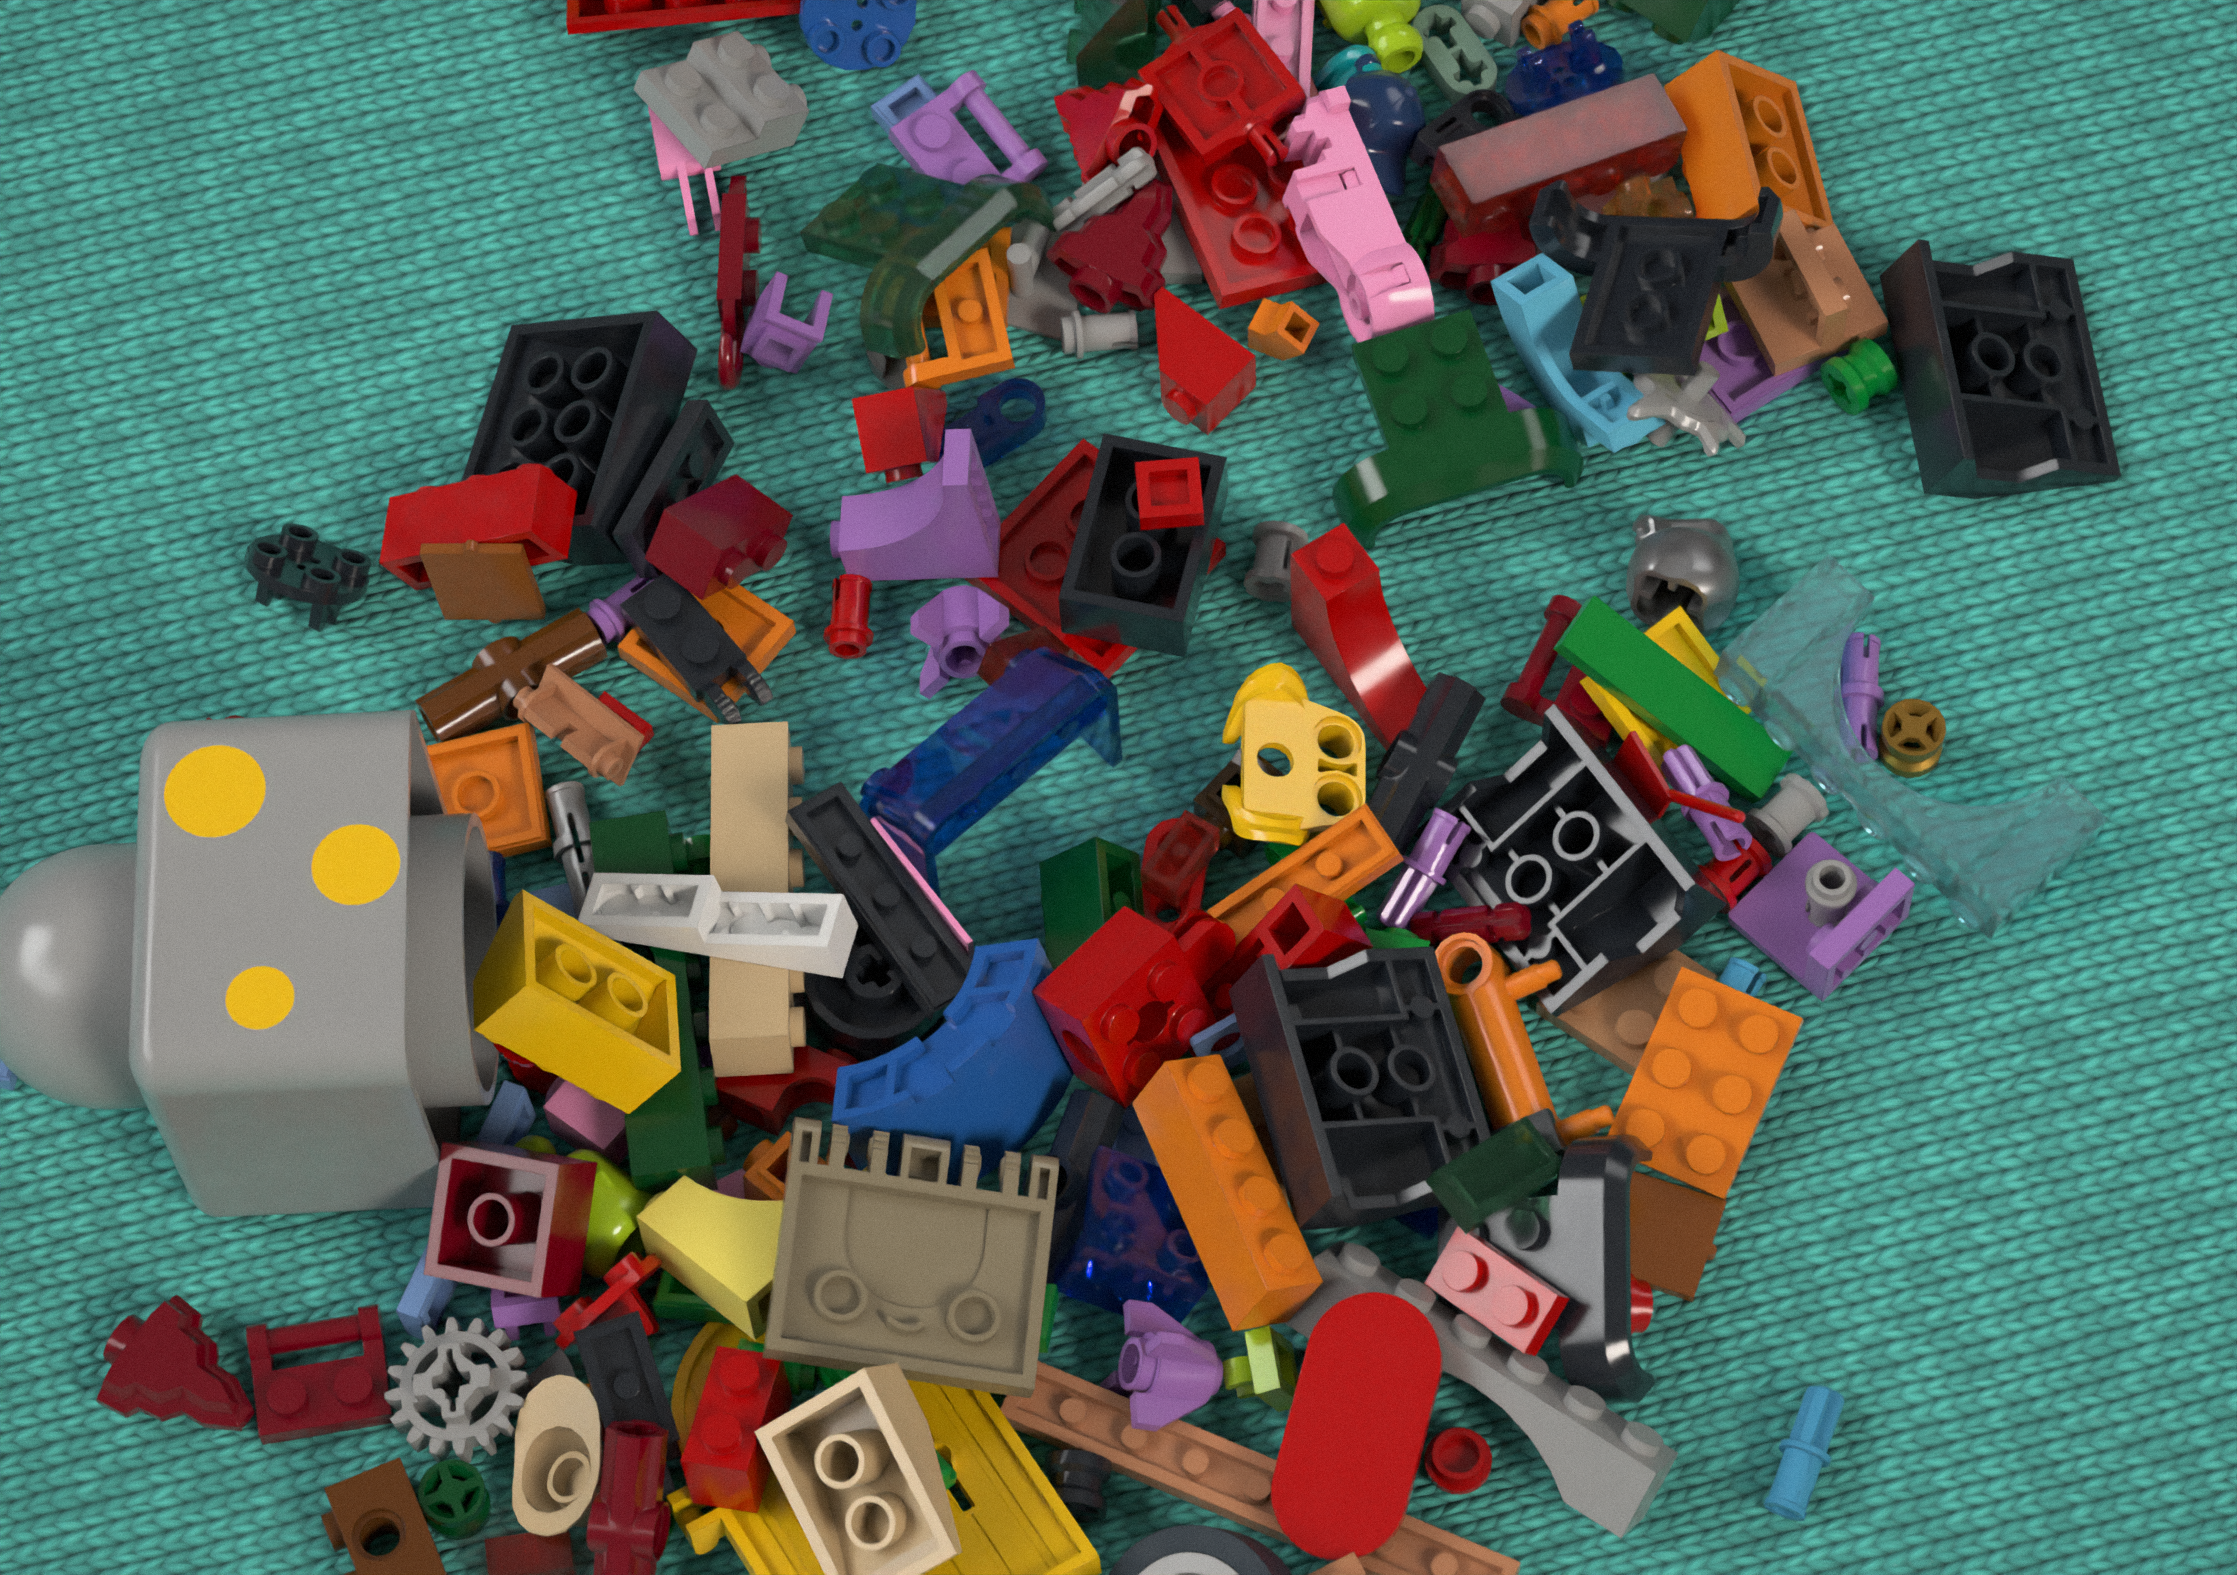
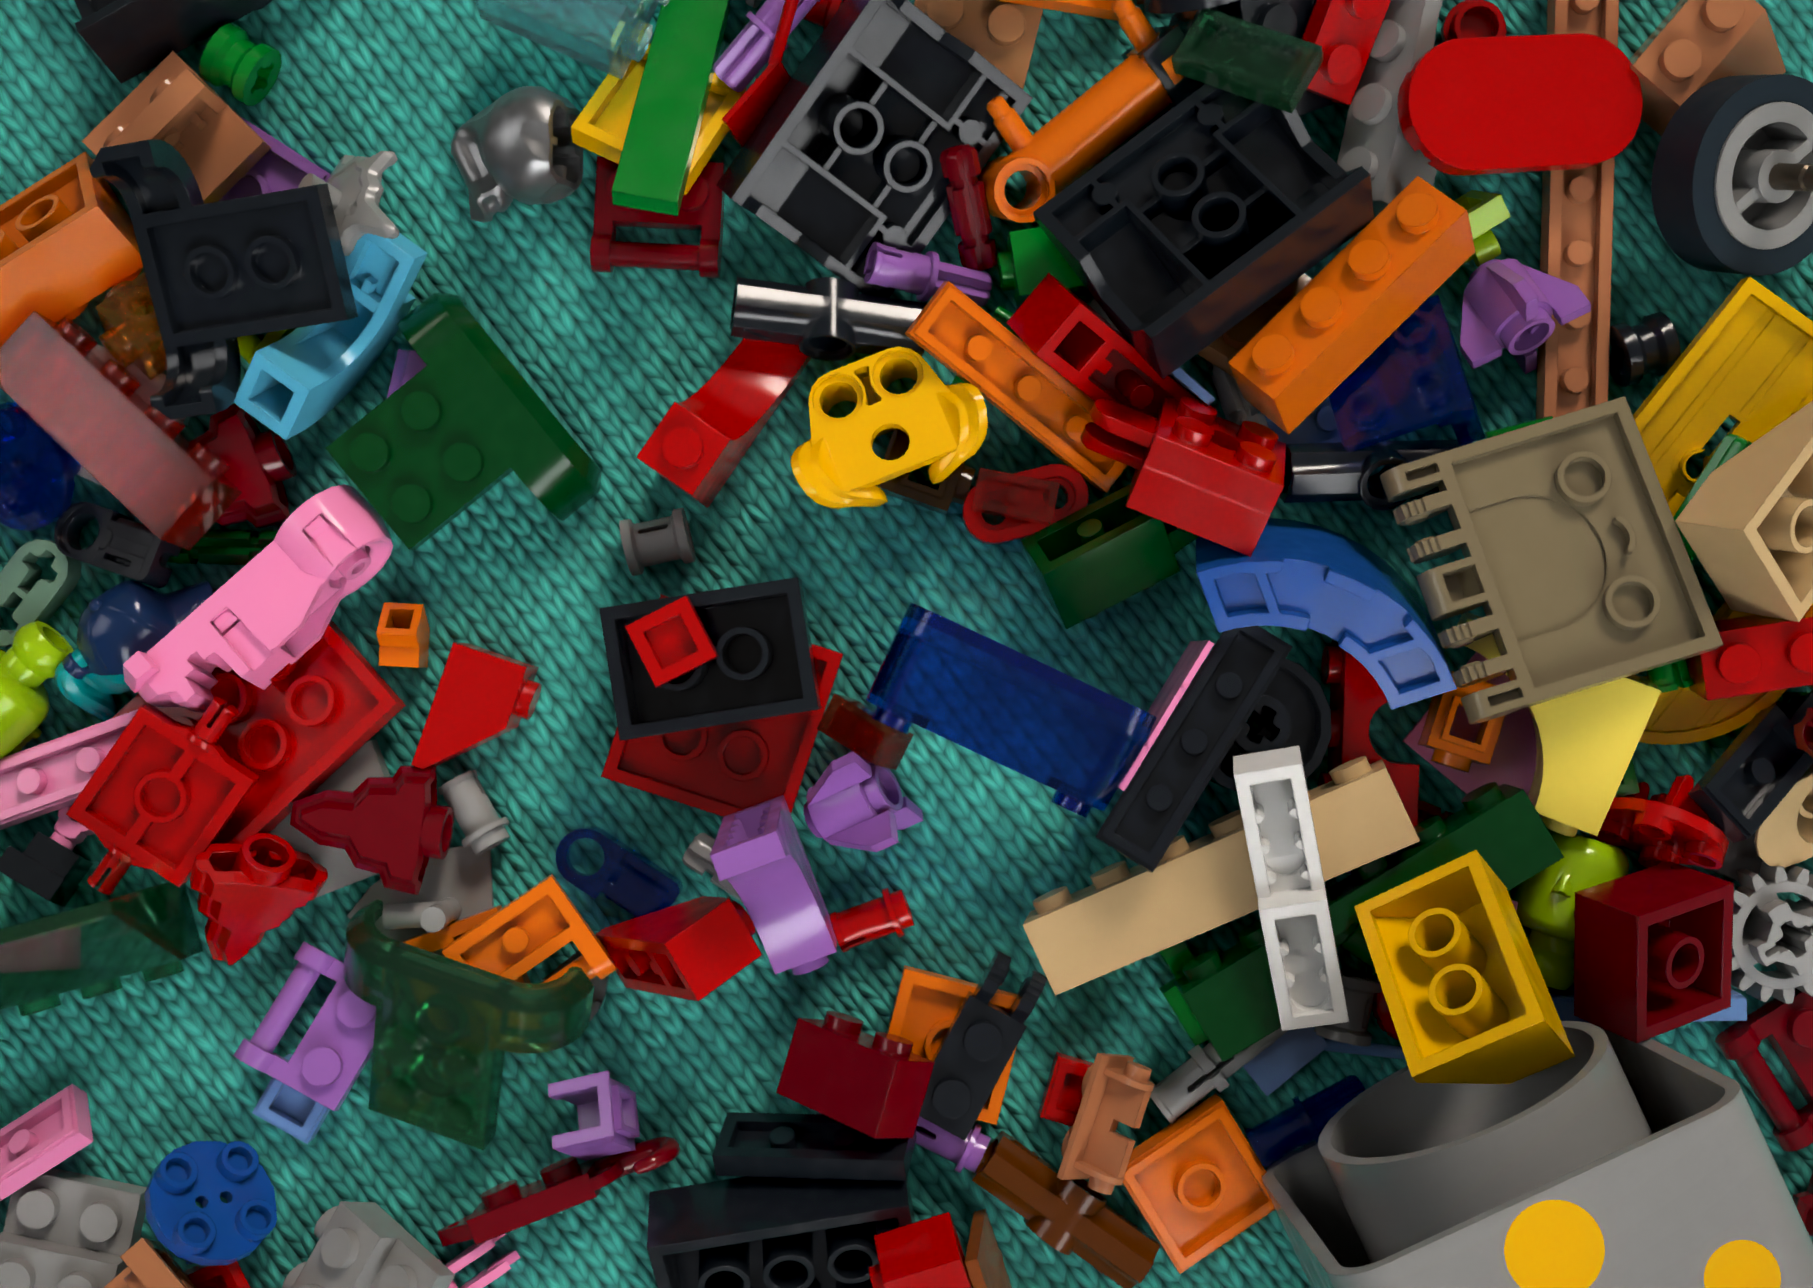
camera: 120 degrees left, 25 degrees up
(1105, 190) = (326, 865): light grey axle -> none

